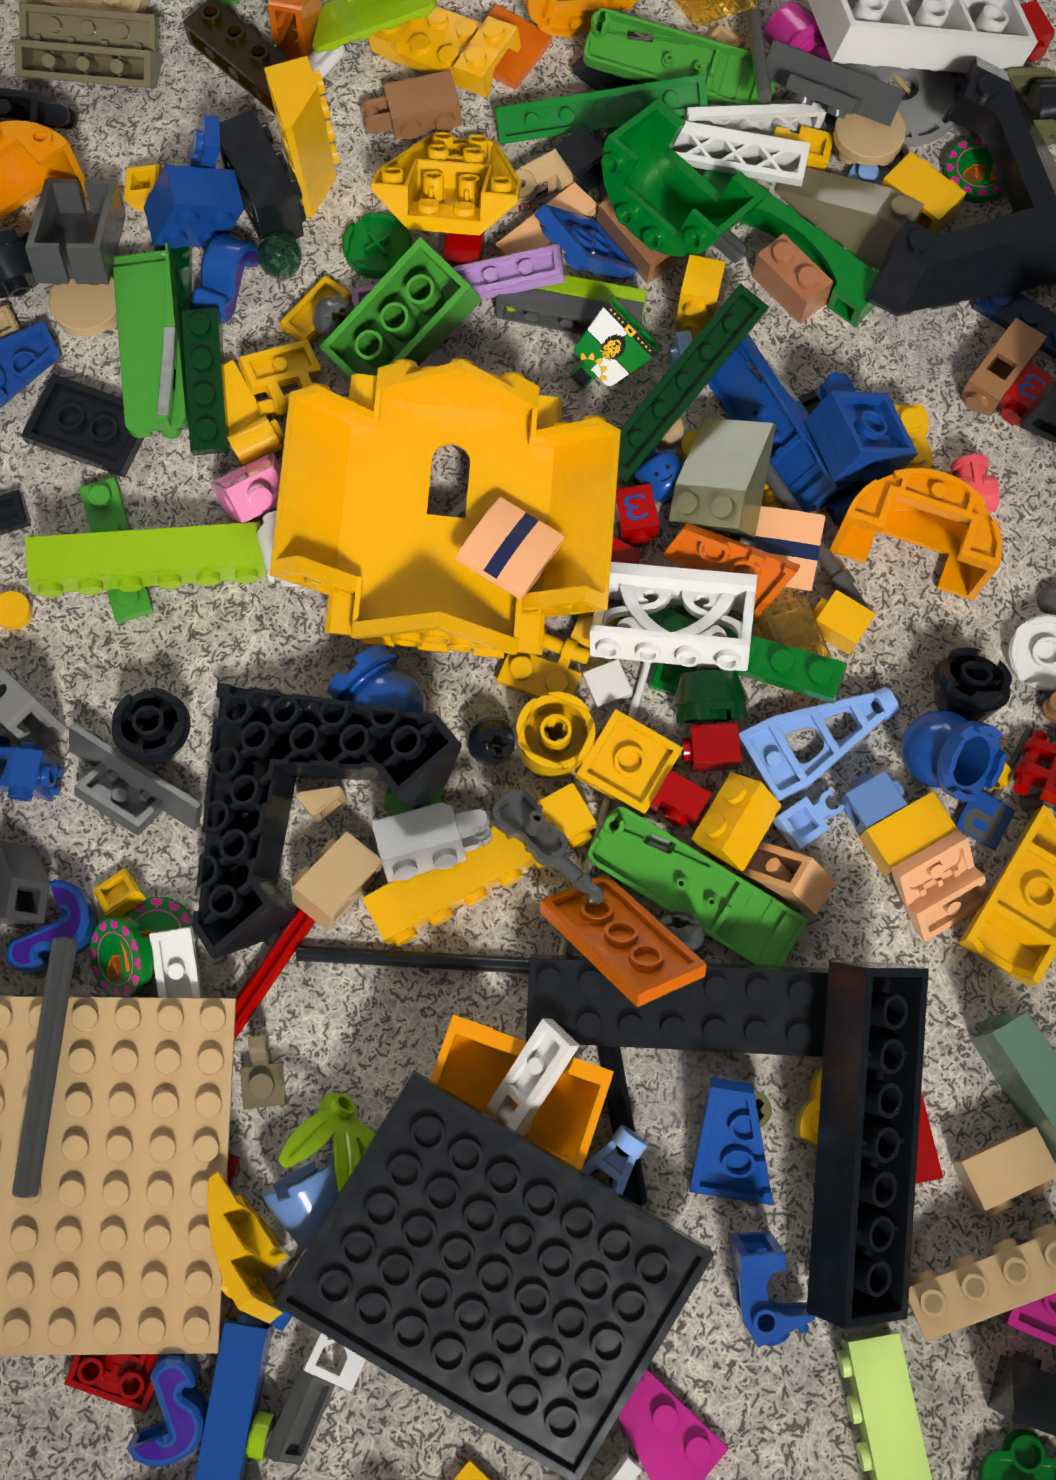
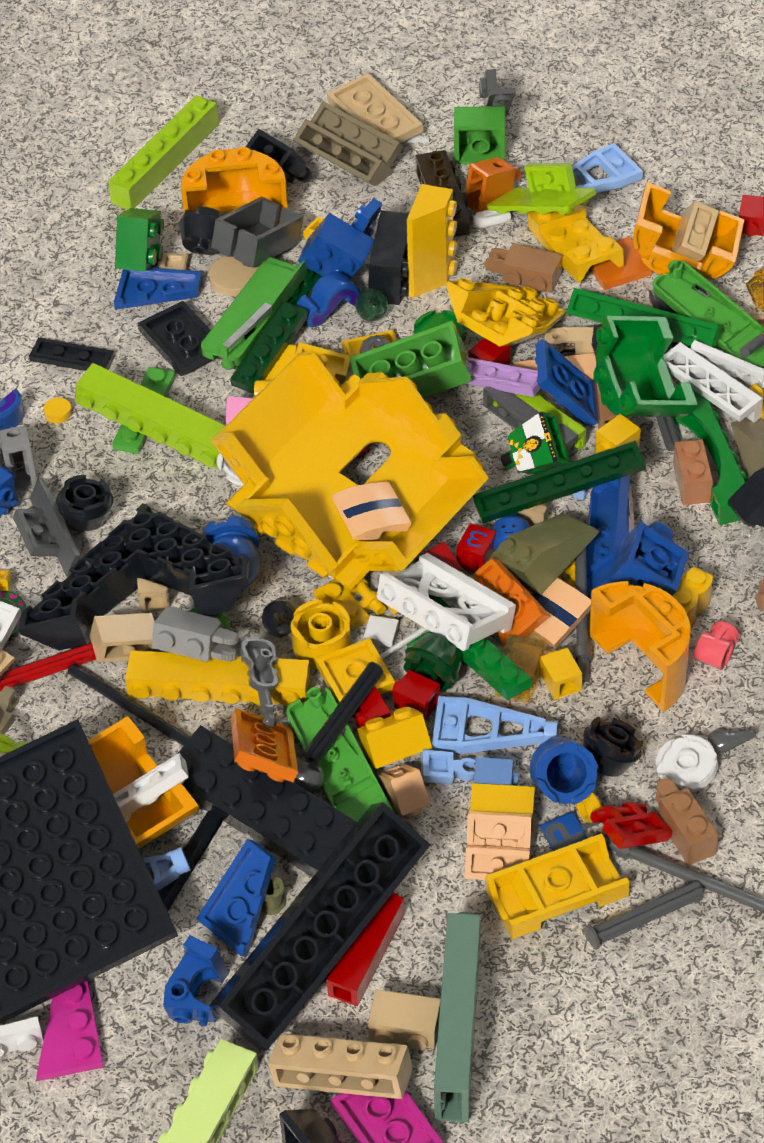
camera: 35 degrees right, 25 degrees down
(667, 831) = (343, 712): none -> black axle

